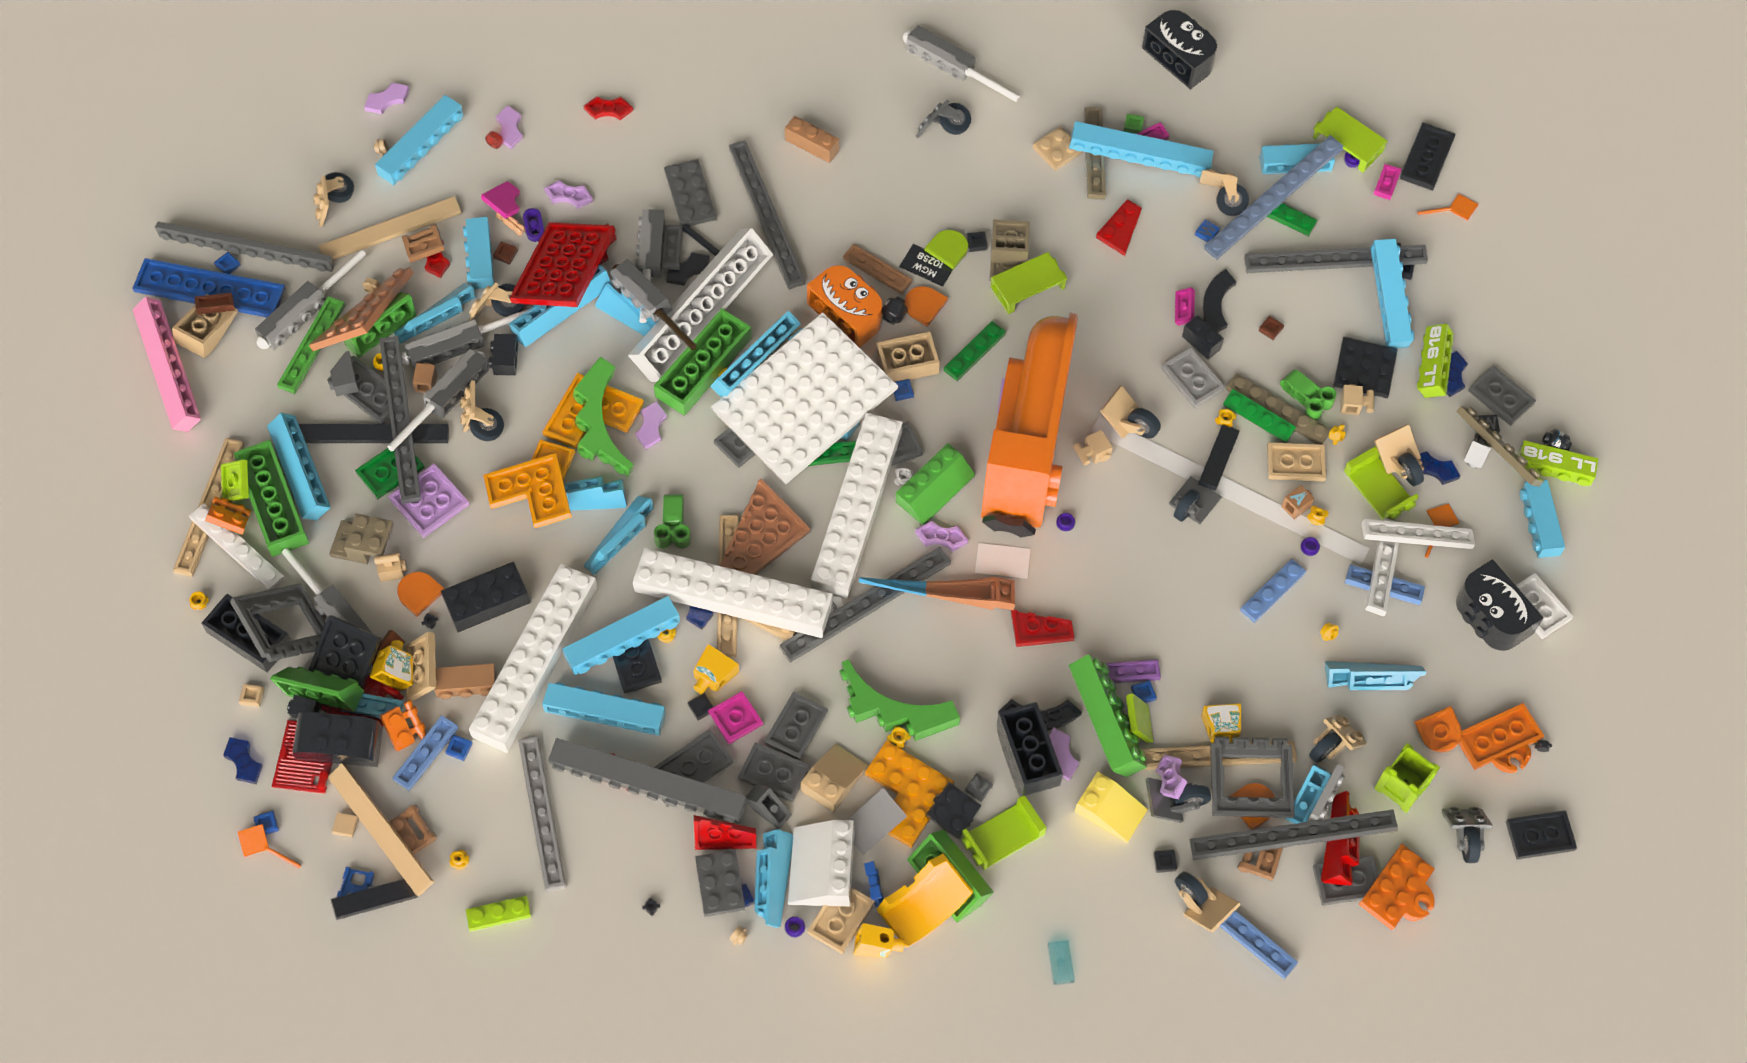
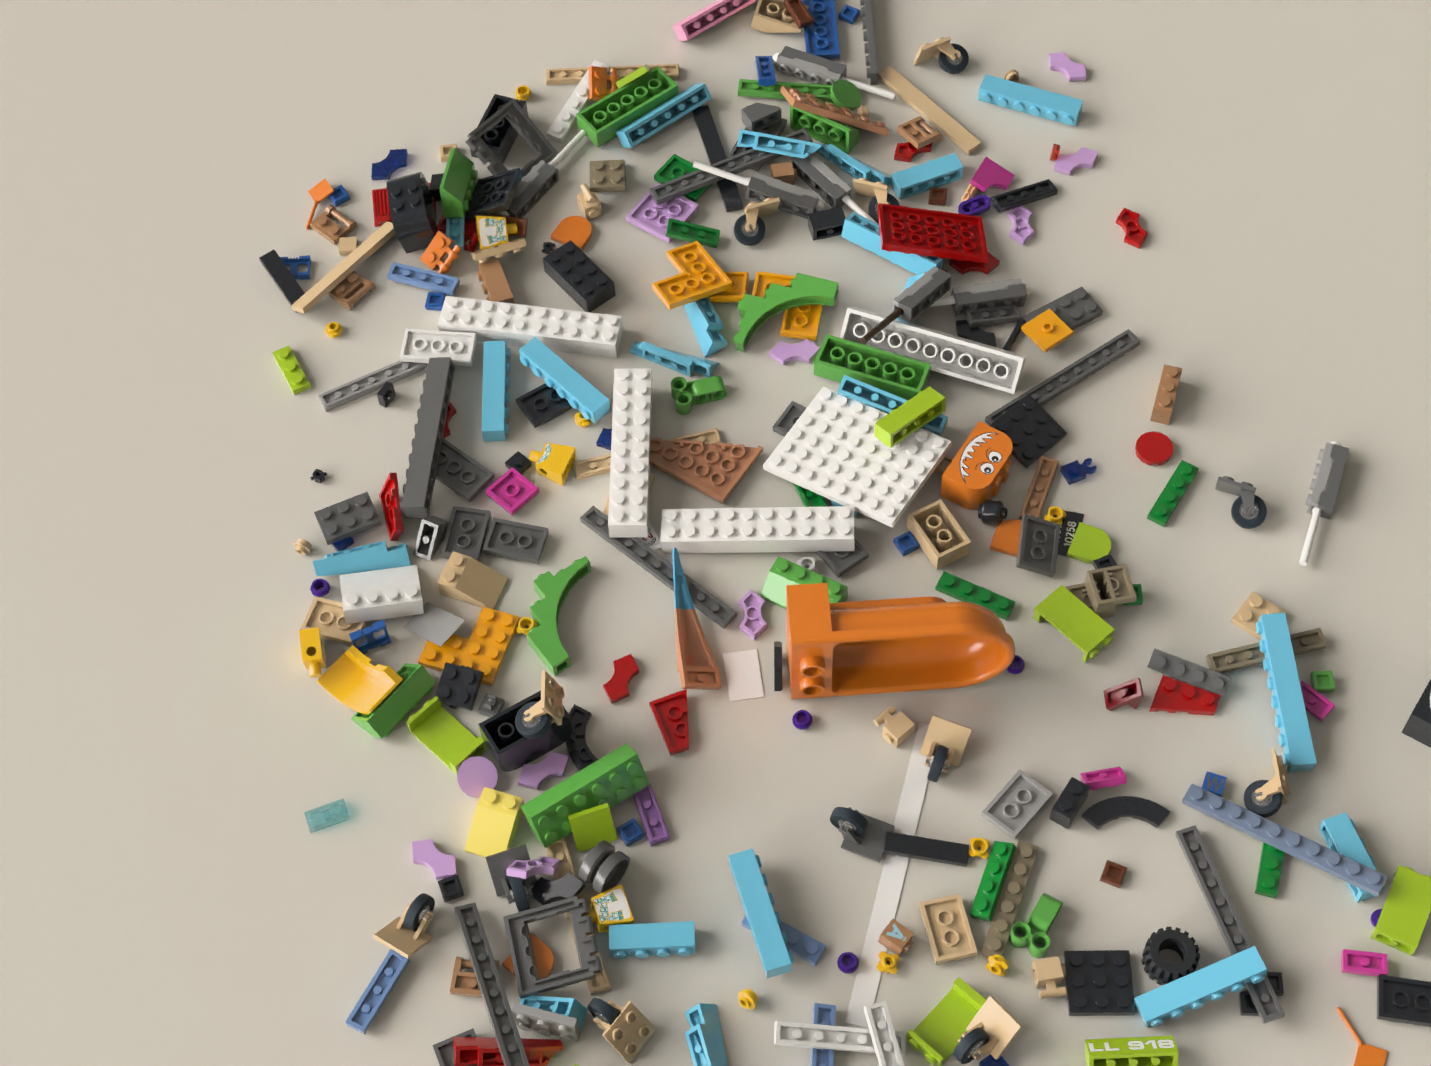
camera: 80 degrees right, 5 degrees down
(278, 356) = (765, 70): none -> blue plate
(310, 841) = (330, 229): none -> medium nougat plate
(344, 293) = (845, 94): none -> bright green tile
(392, 368) = (777, 144): none -> medium azure wedge
(471, 477) = (692, 232): none -> green plate
(530, 752) = (425, 344): none -> white plate
(538, 180) = (1023, 195): none -> black tile
(571, 816) = (386, 394): none -> black plate
(709, 207) = (1047, 330): none -> light orange plate
(788, 335) = (910, 417): none -> lime brick
(812, 254) = (1030, 430): none -> black plate
(863, 168) = (1154, 448): none -> red tile
(867, 234) = (1076, 472): none -> clear blue plate
(911, 259) = (1055, 511): none -> yellow plate
(914, 169) = (1172, 493): none -> green plate
(942, 284) = (1038, 545): none -> dark grey plate
(972, 660) = (624, 671): none -> red tile
(1040, 727) = (536, 717): none -> plate
(1057, 812) = (475, 775): none -> lavender tile
(1099, 213) = (1189, 672): none -> dark grey plate
(1111, 265) = (1125, 694): none -> dark red slope
(1139, 864) = (426, 853): none -> lavender tile
(1184, 716) = (604, 867): none -> dark grey wheel
(1193, 755) = (549, 890): none -> tile
(1257, 598) = (760, 913): none -> medium azure brick
(1257, 695) = (652, 939): none -> medium azure brick
(1361, 296) = (1174, 941): none -> black tyre

